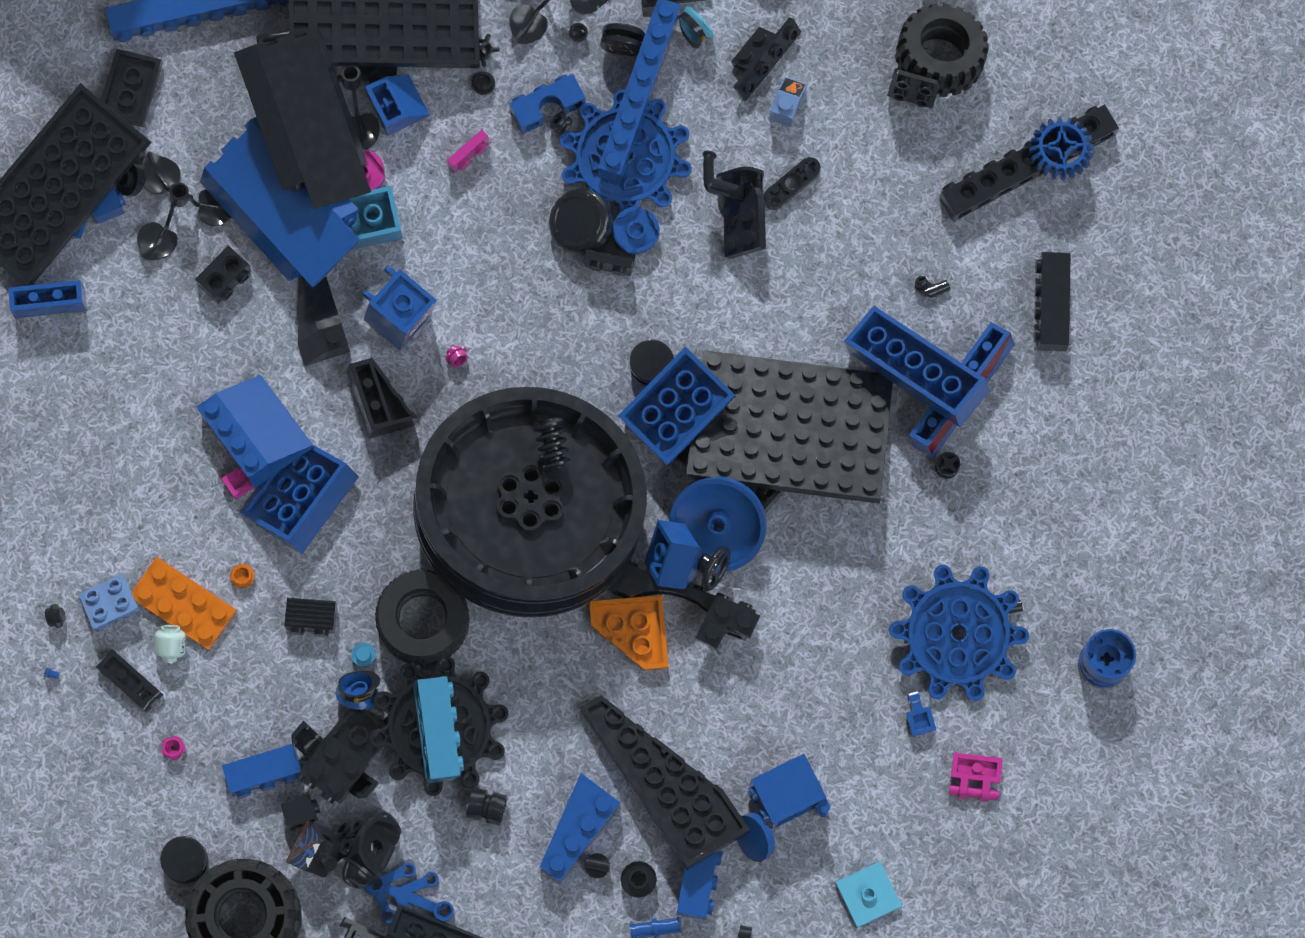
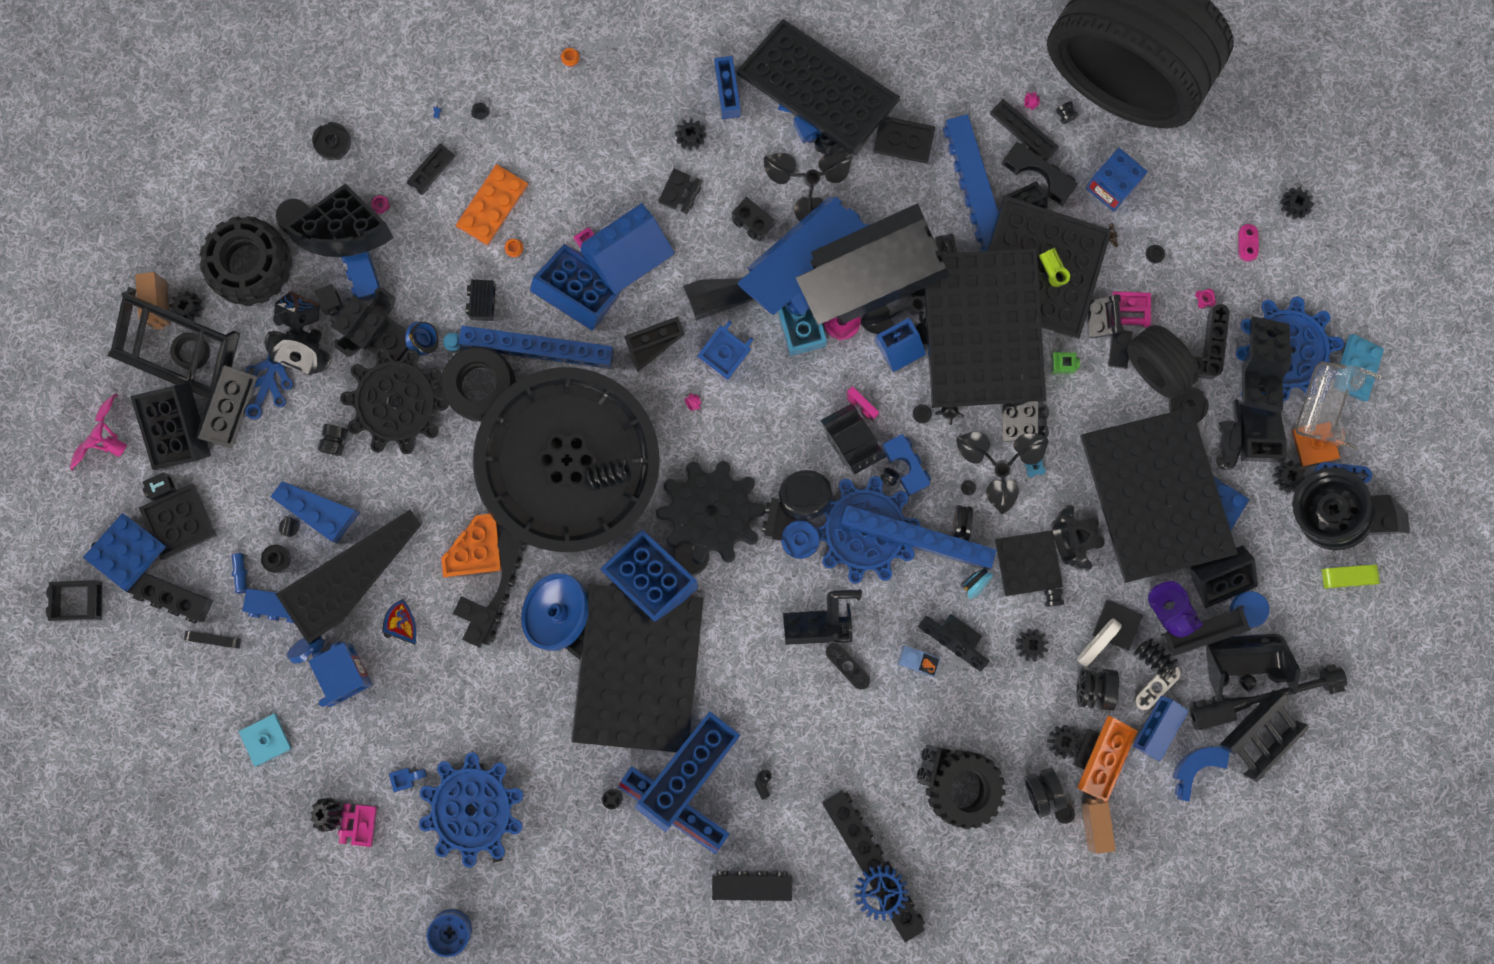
camera: 90 degrees right, 5 degrees up
(87, 824) = (328, 131): none -> black plate
(109, 602) = (491, 150): medium blue hinge -> none
(115, 344) = (691, 140): none -> black gear
(170, 643) = (458, 196): light aqua head -> none
(177, 372) = (675, 188): none -> black plate
(205, 789) = (339, 226): none -> black brick
(377, 545) = (538, 347): none -> blue brick
(436, 729) = (382, 396): dark azure brick -> none
(515, 163) = (852, 439): none -> black slope
(602, 360) = (705, 531): none -> black plate
(677, 558) = (526, 580): blue piece -> none
(726, 720) = (400, 622): none -> shield
(956, 806) = (326, 814): none -> black gear

